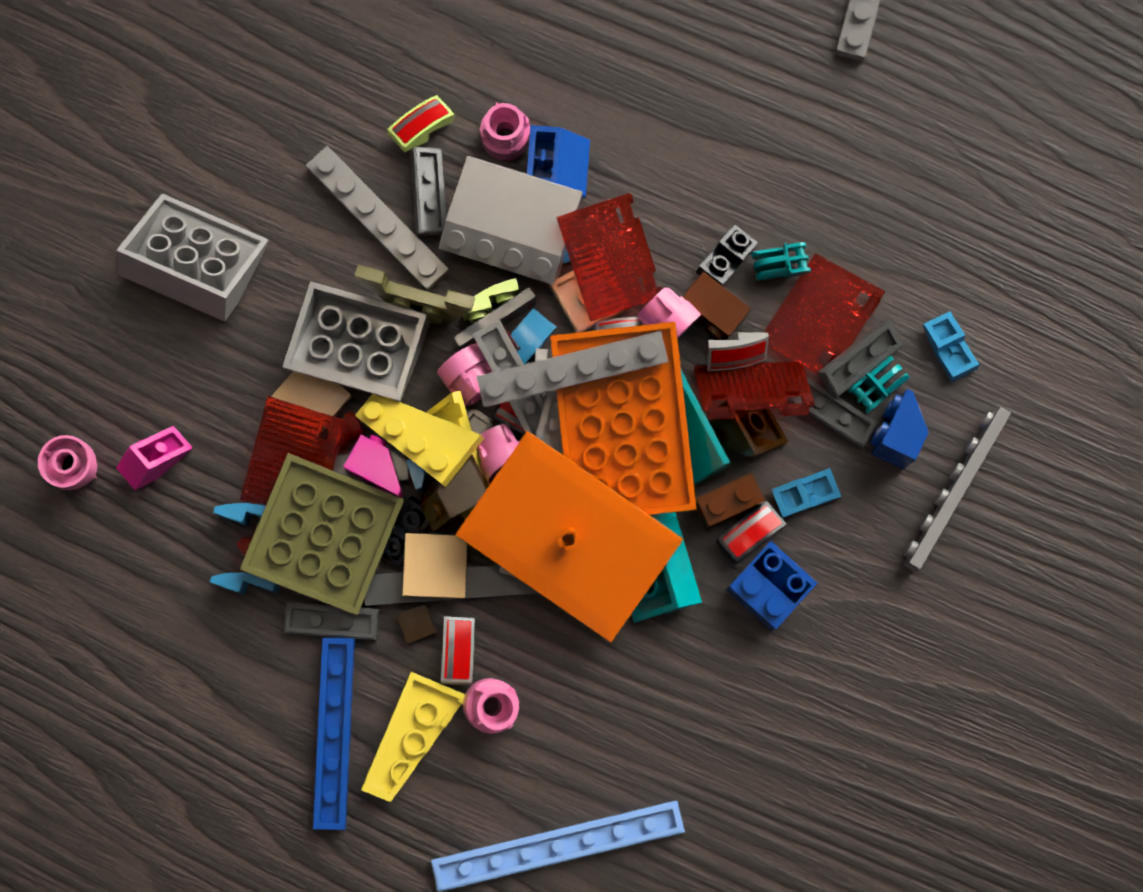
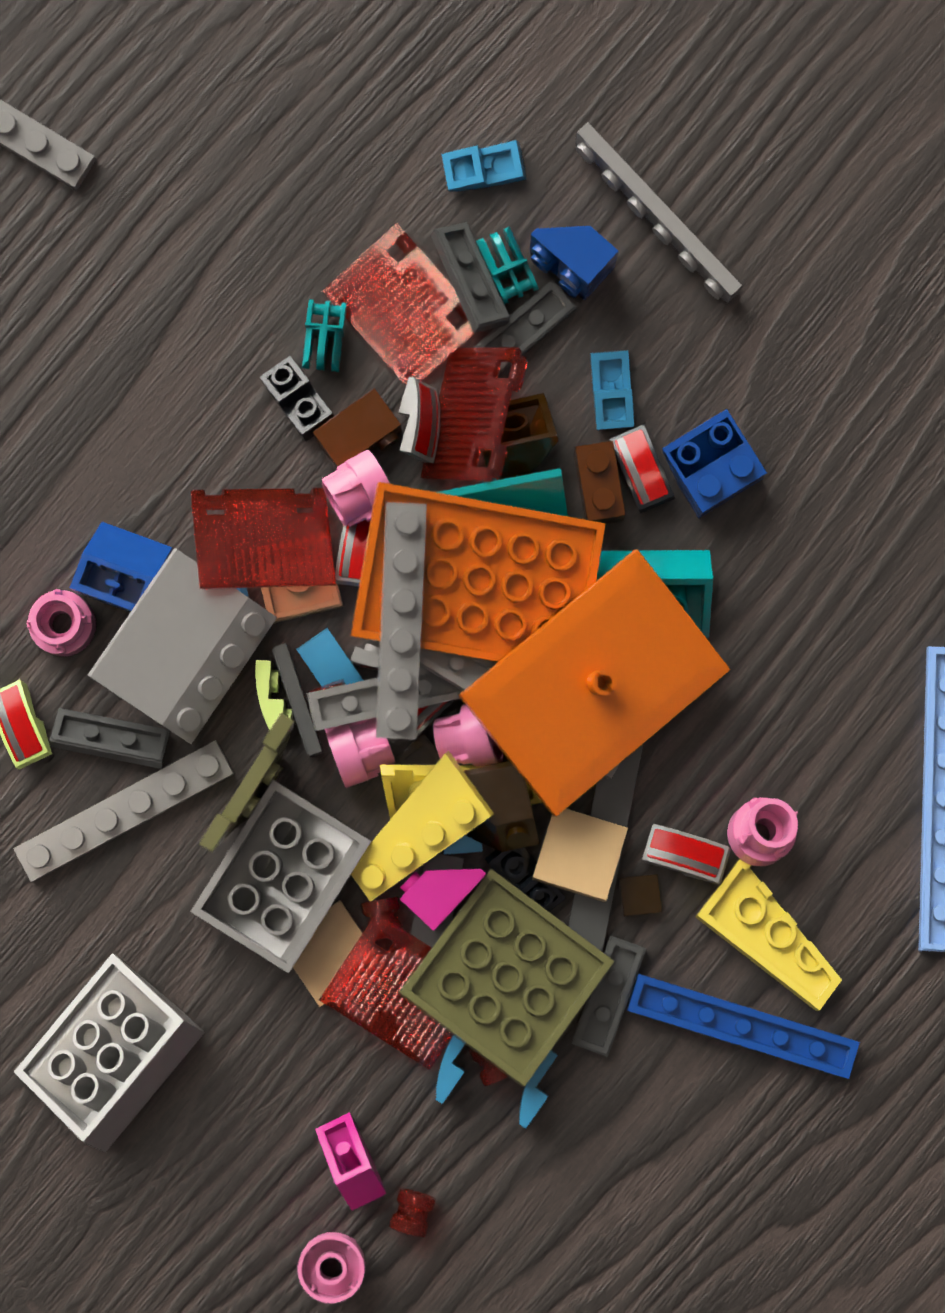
camera: 75 degrees left, 5 degrees up
(126, 515) = (412, 1212): none -> clear red wheel

